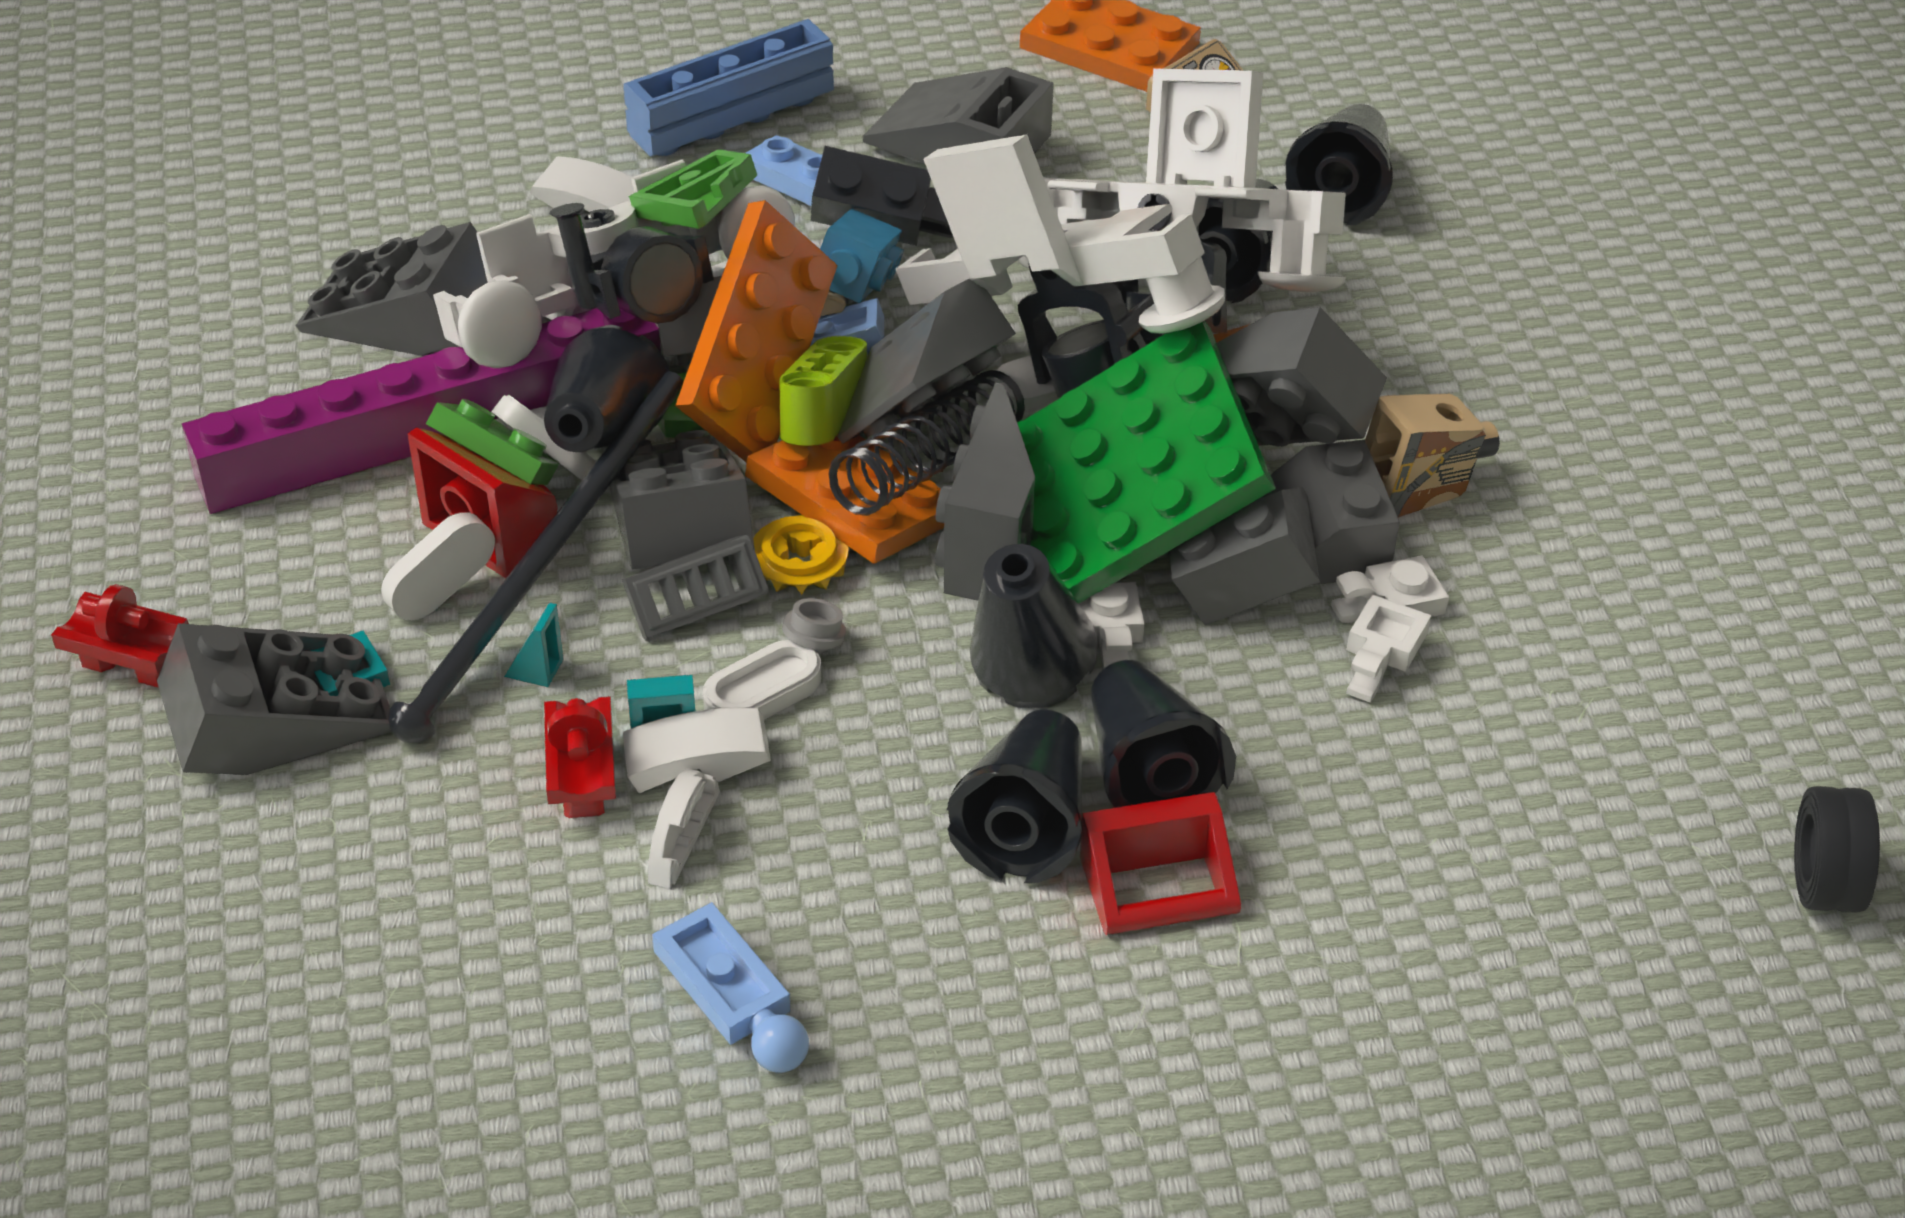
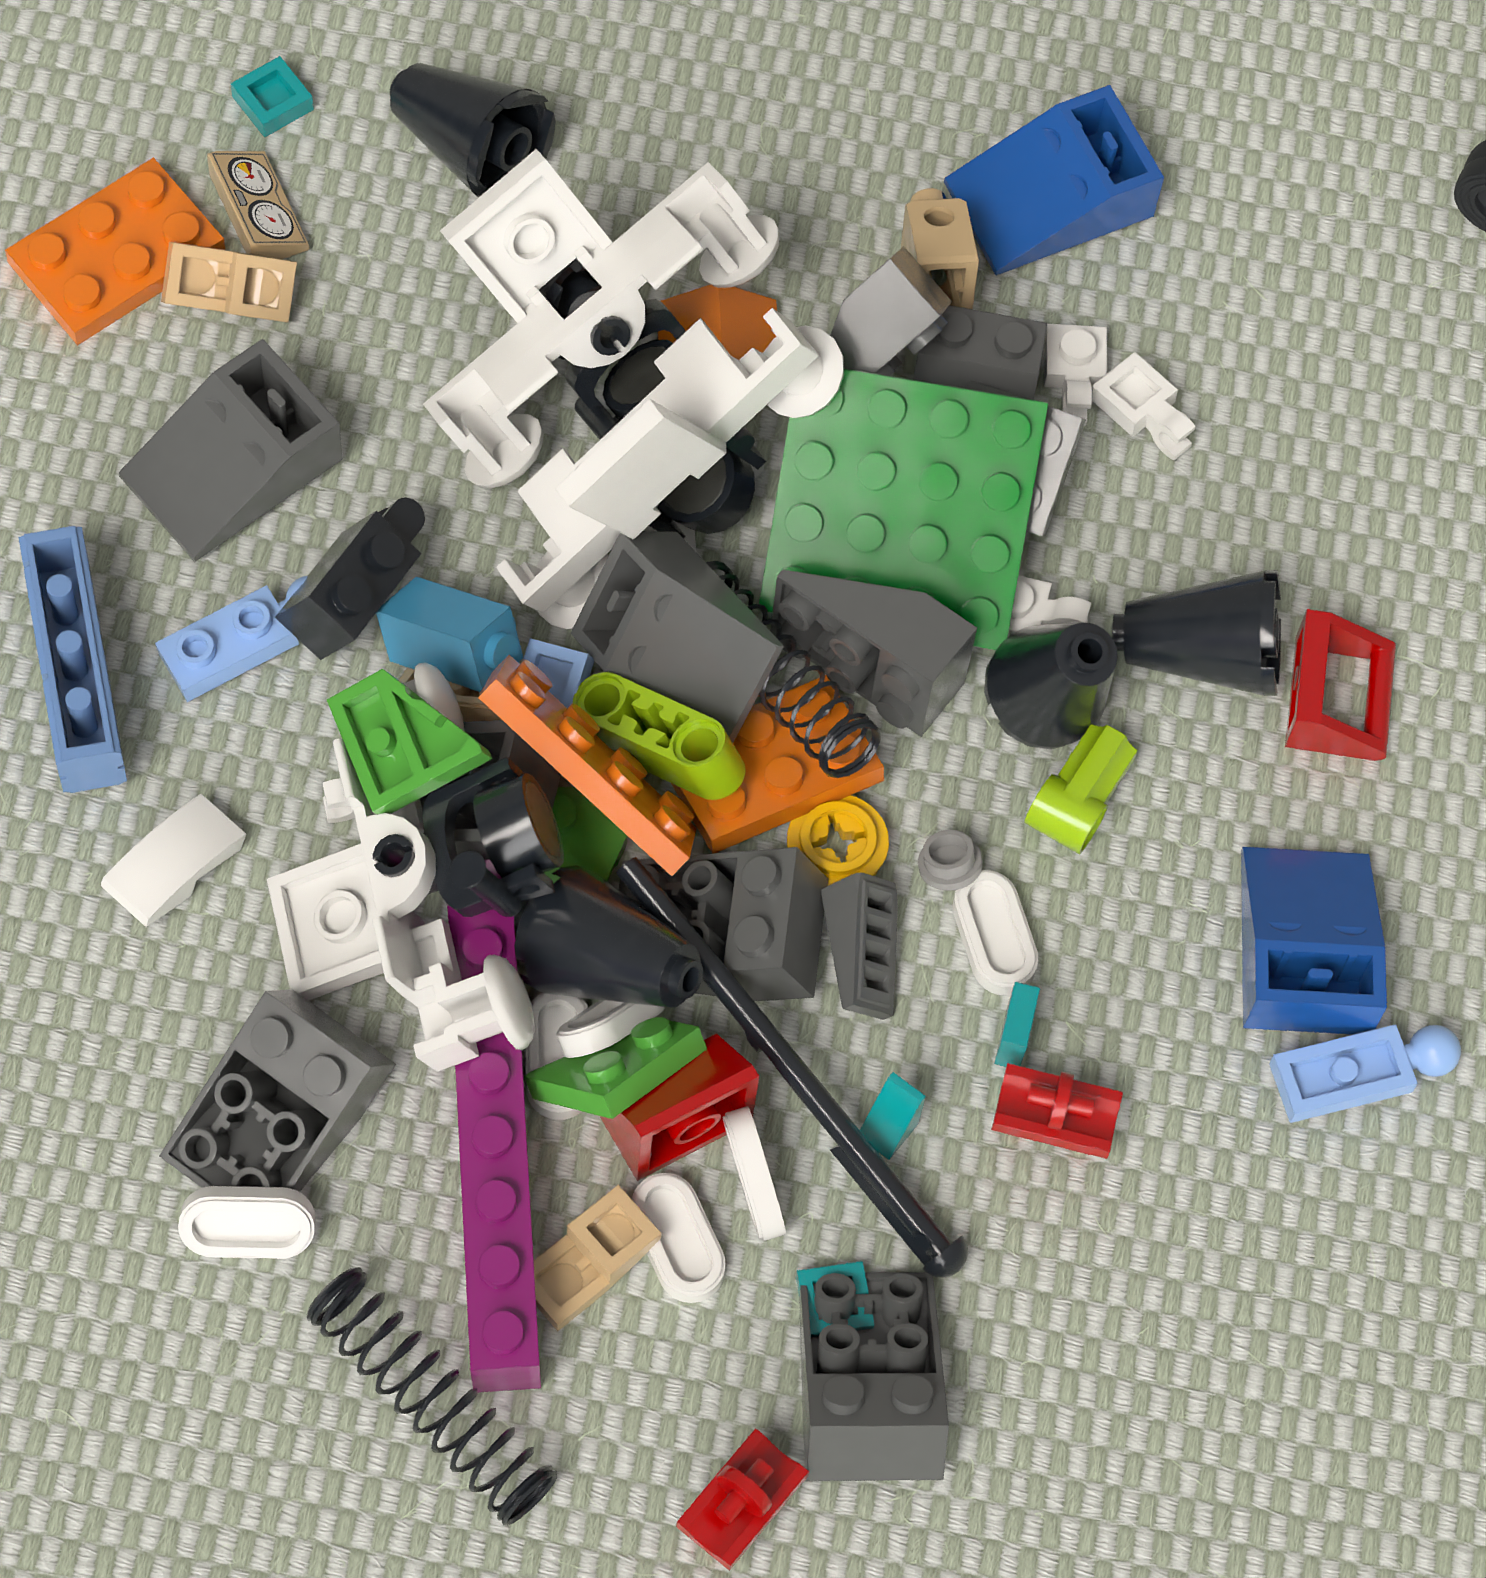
camera: 75 degrees left, 20 degrees up
(227, 367) = (350, 1285): none -> black piece
(292, 302) = (247, 1222): none -> white tile
(330, 502) = (592, 1256): none -> tan slope
(367, 554) = (688, 1254): none -> white tile
(679, 825) = (1156, 1050): white tile -> none
(712, 740) = (1069, 1011): white slope -> none
(851, 900) = (1311, 942): none -> blue slope
(917, 693) = (1076, 799): none -> lime piece
(1022, 801) = (1240, 753): black cone -> none
(1114, 84) = (228, 281): none -> tan slope
(1305, 74) = (272, 96): none -> teal tile
(1580, 520) = (1058, 182): none -> blue slope

